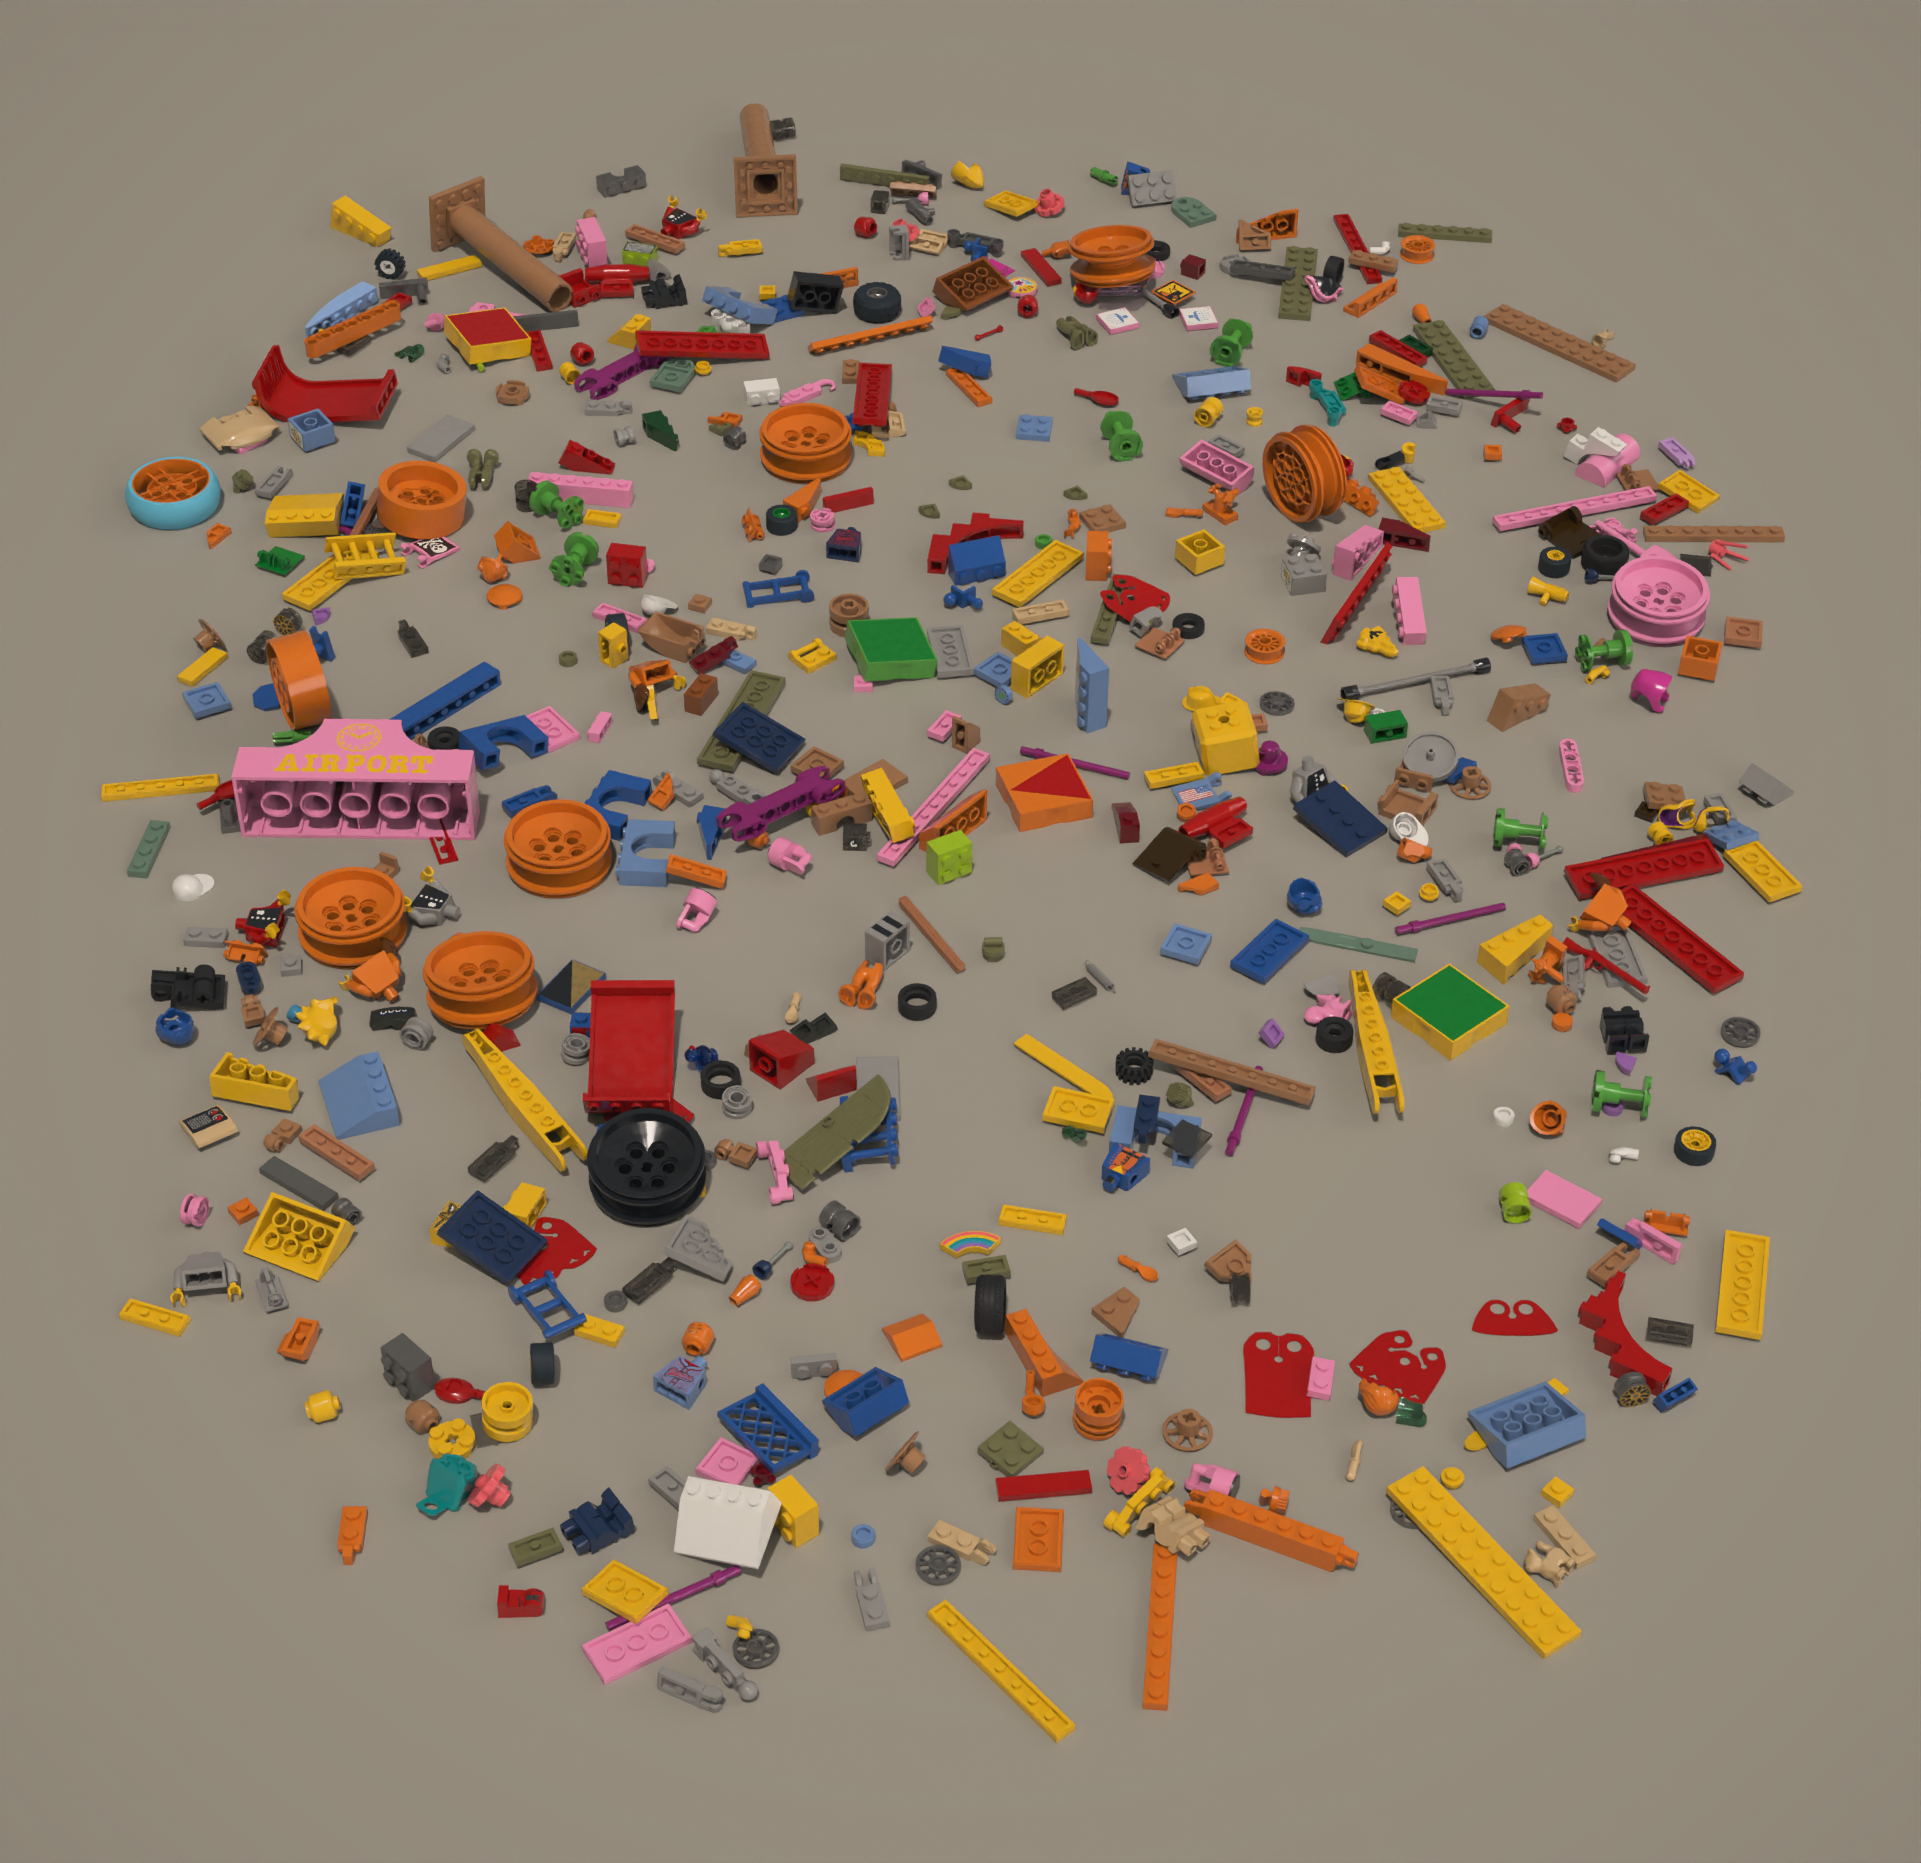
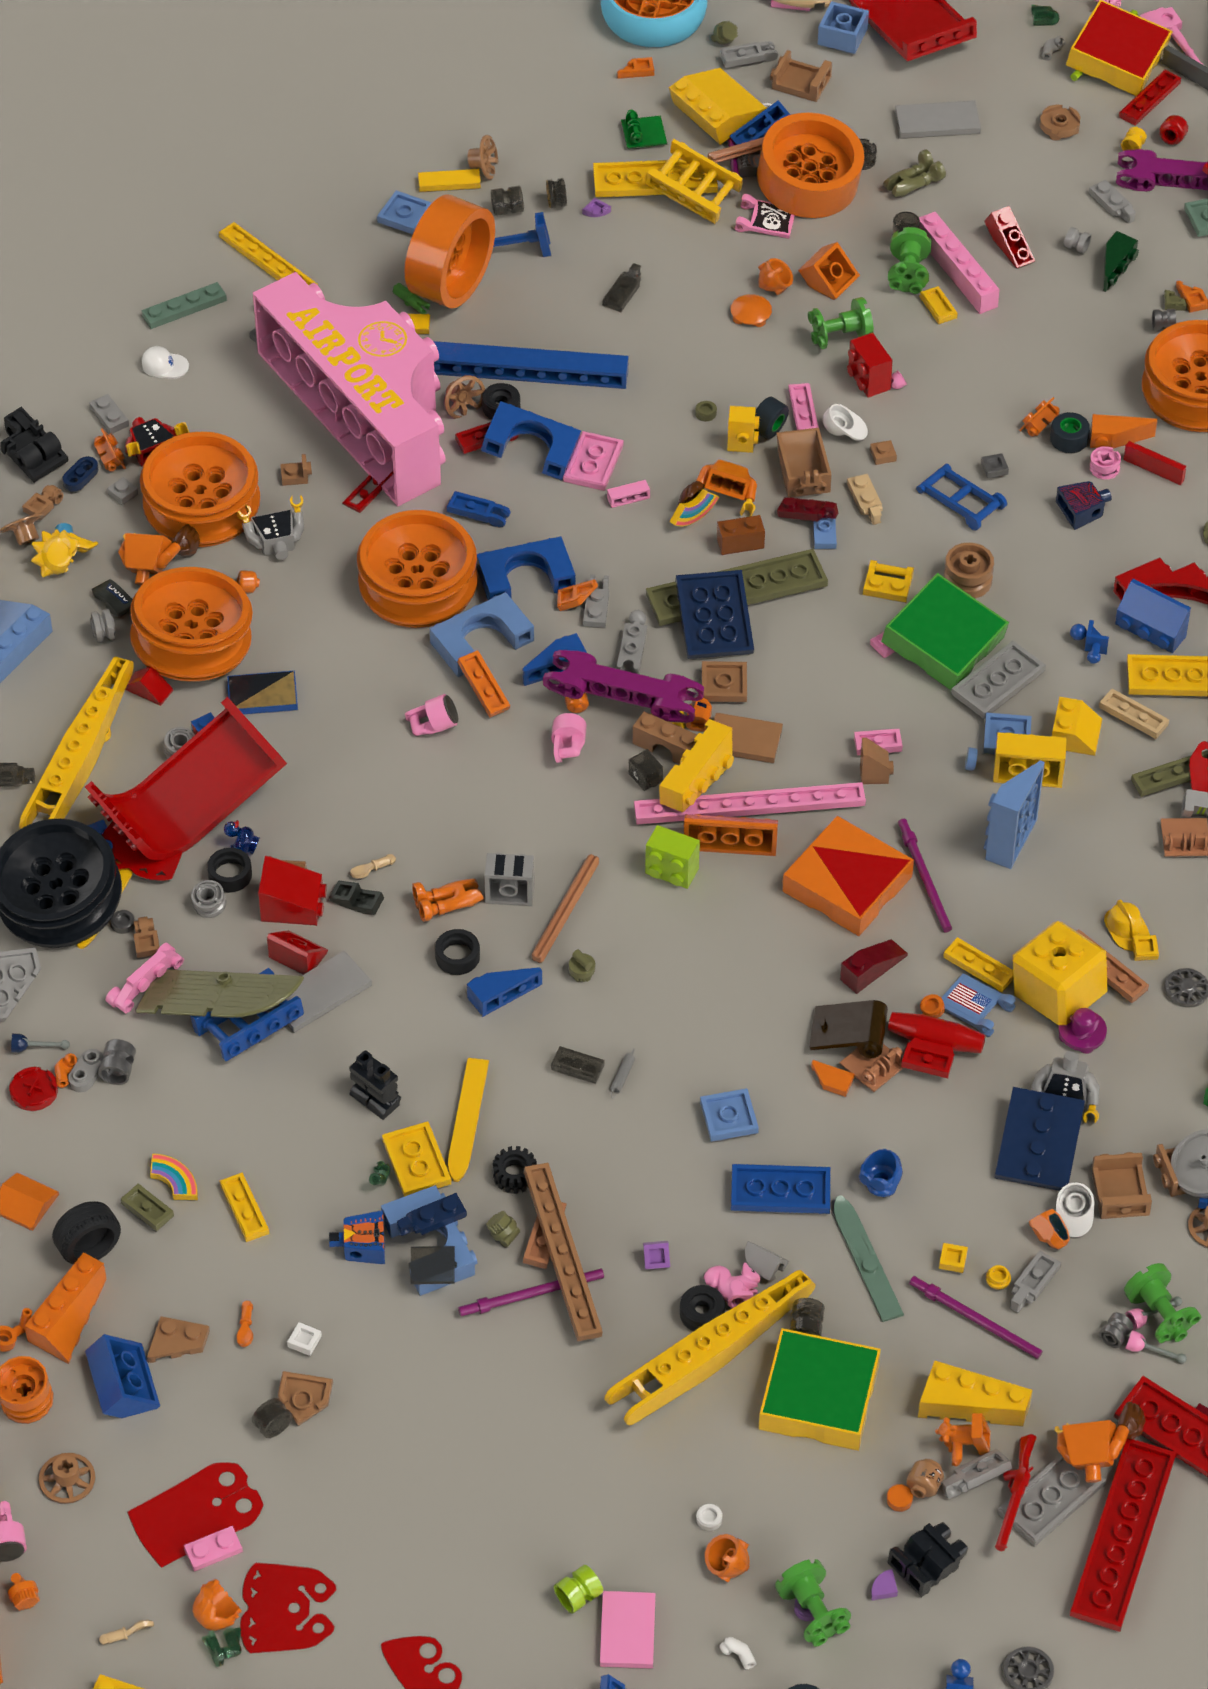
camera: 55 degrees right, 10 degrees up
(328, 472) = (800, 78): none -> medium nougat panel
(970, 997) = (499, 988): none -> blue slope
(1001, 1088) = (374, 1085): none -> black hips

